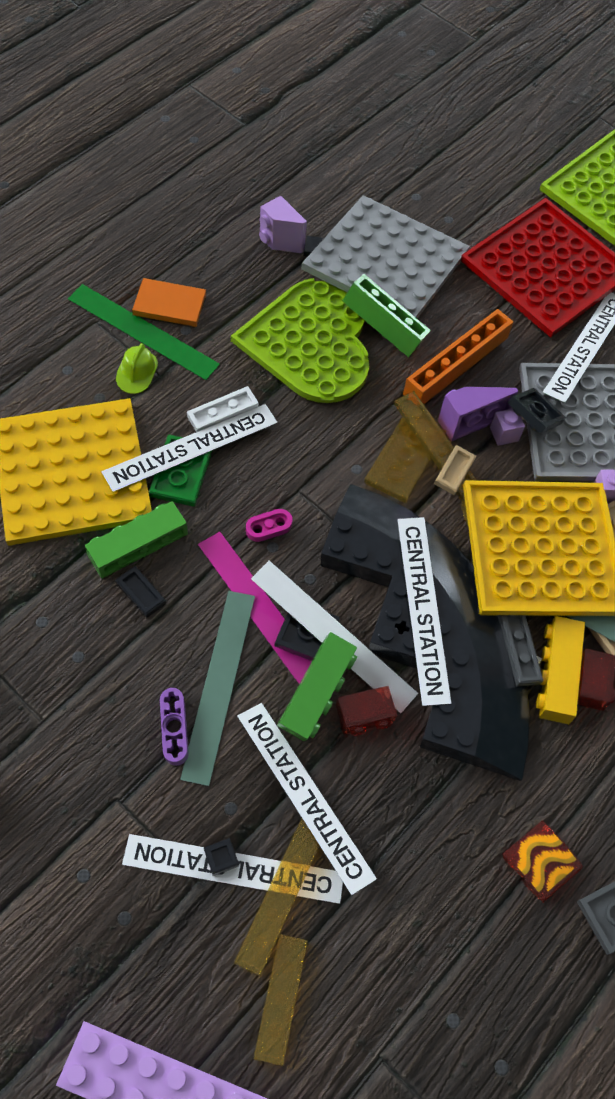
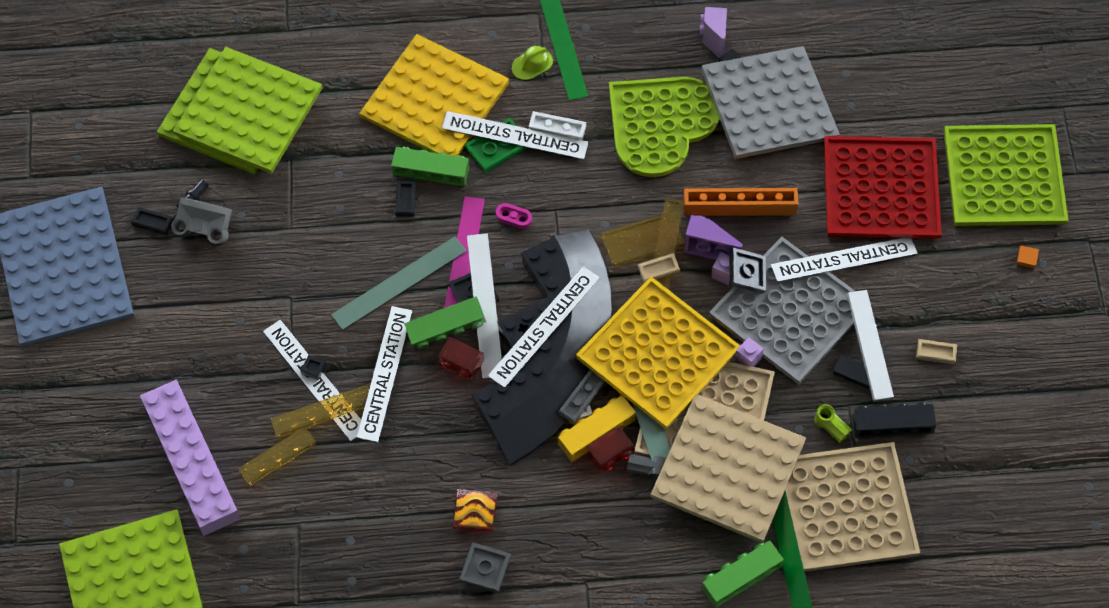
camera: 50 degrees right, 0 degrees up
(165, 719) = (351, 292): medium lavender beam -> none
(169, 302) = (595, 32): orange tile -> none
(386, 315) = (718, 139): bright green brick -> none

